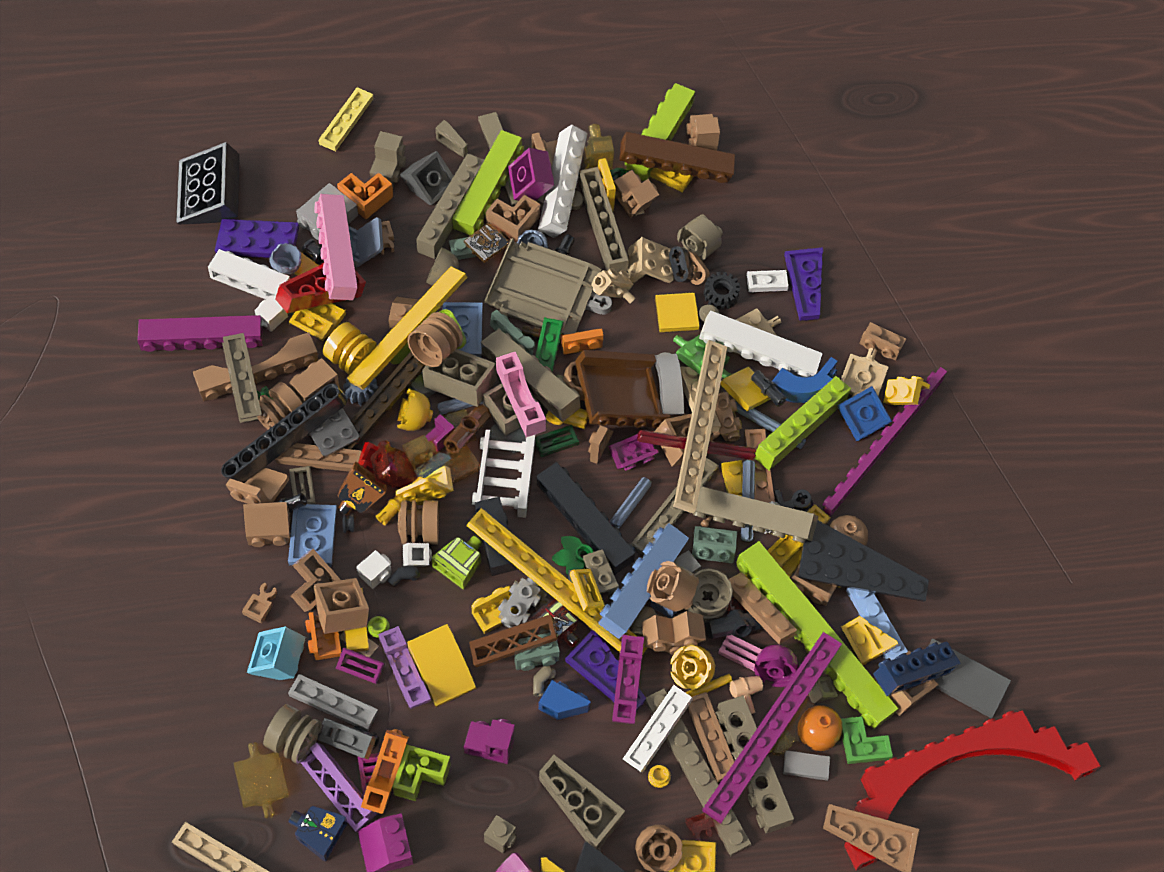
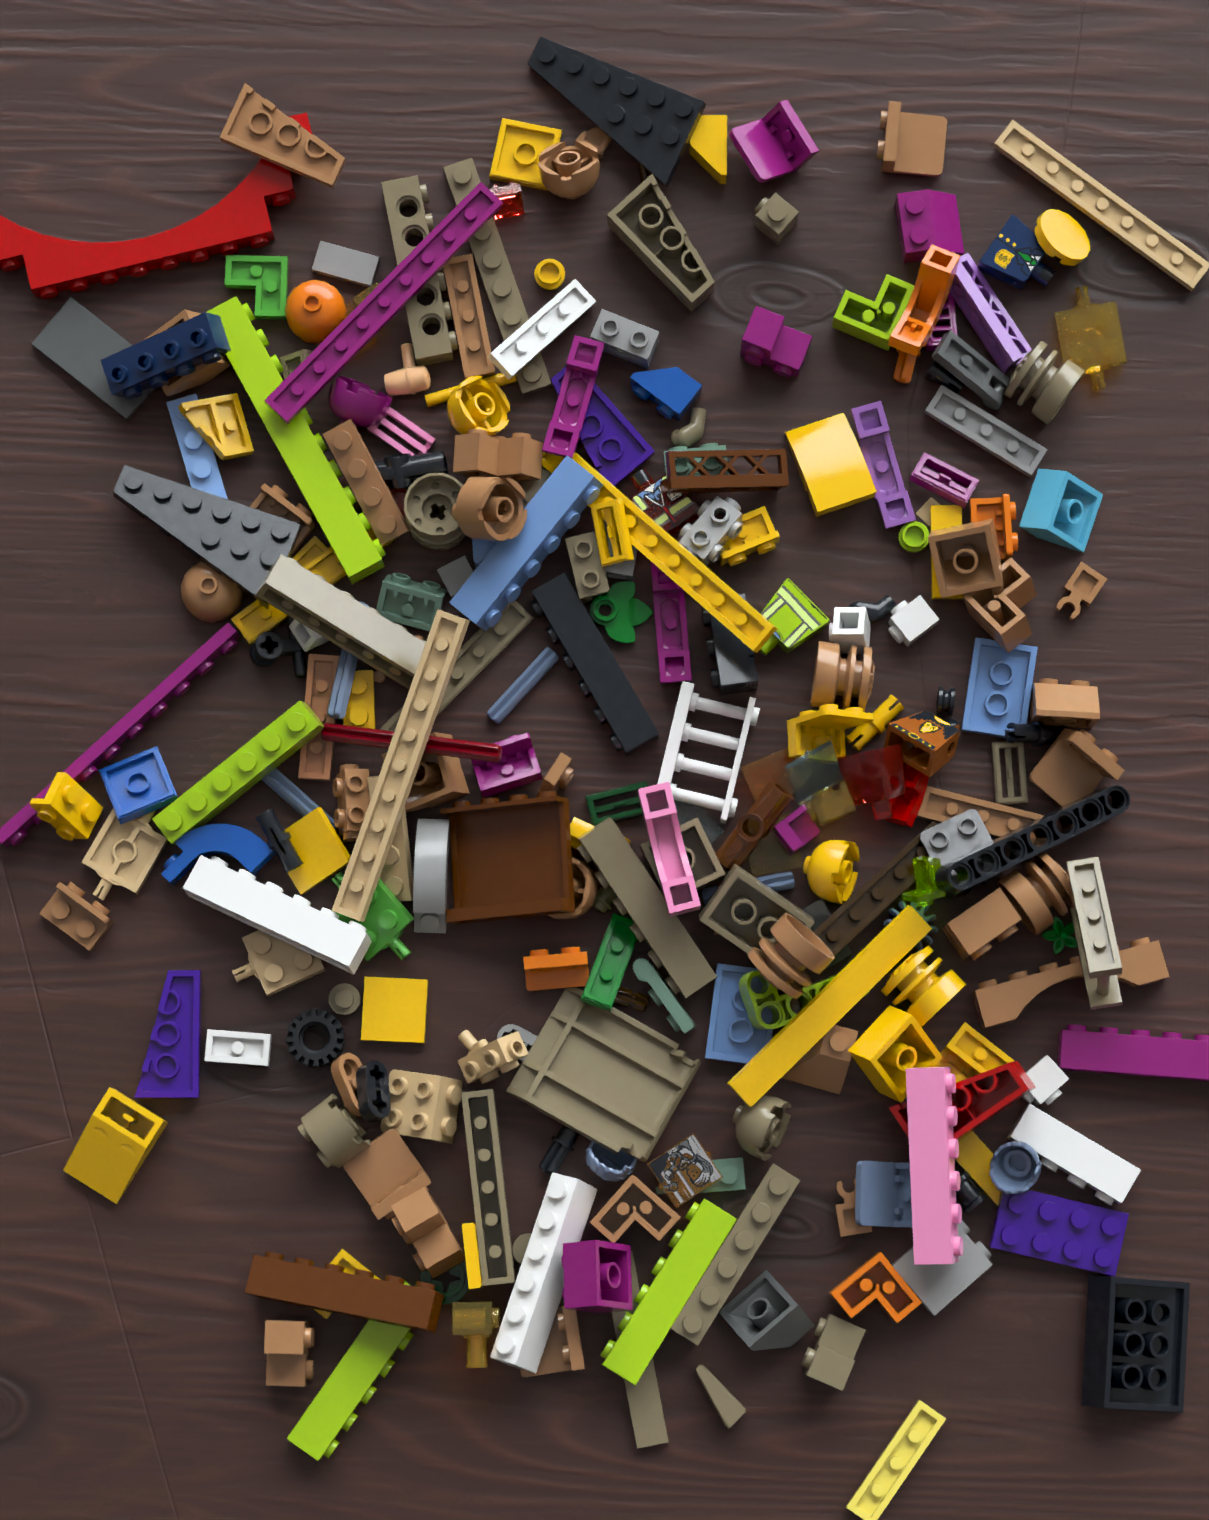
camera: 165 degrees left, 20 degrees up
(285, 845) = (1062, 237): none -> yellow tile
(354, 398) = (926, 890): none -> clear neon green bracket
(366, 309) = (891, 1047): none -> yellow brick
(534, 533) = (670, 628): none -> magenta slope
(598, 732) = (625, 338): none -> light grey brick
(660, 222) = (386, 1173): none -> medium nougat bracket
(826, 225) = (114, 1145): none -> yellow slope

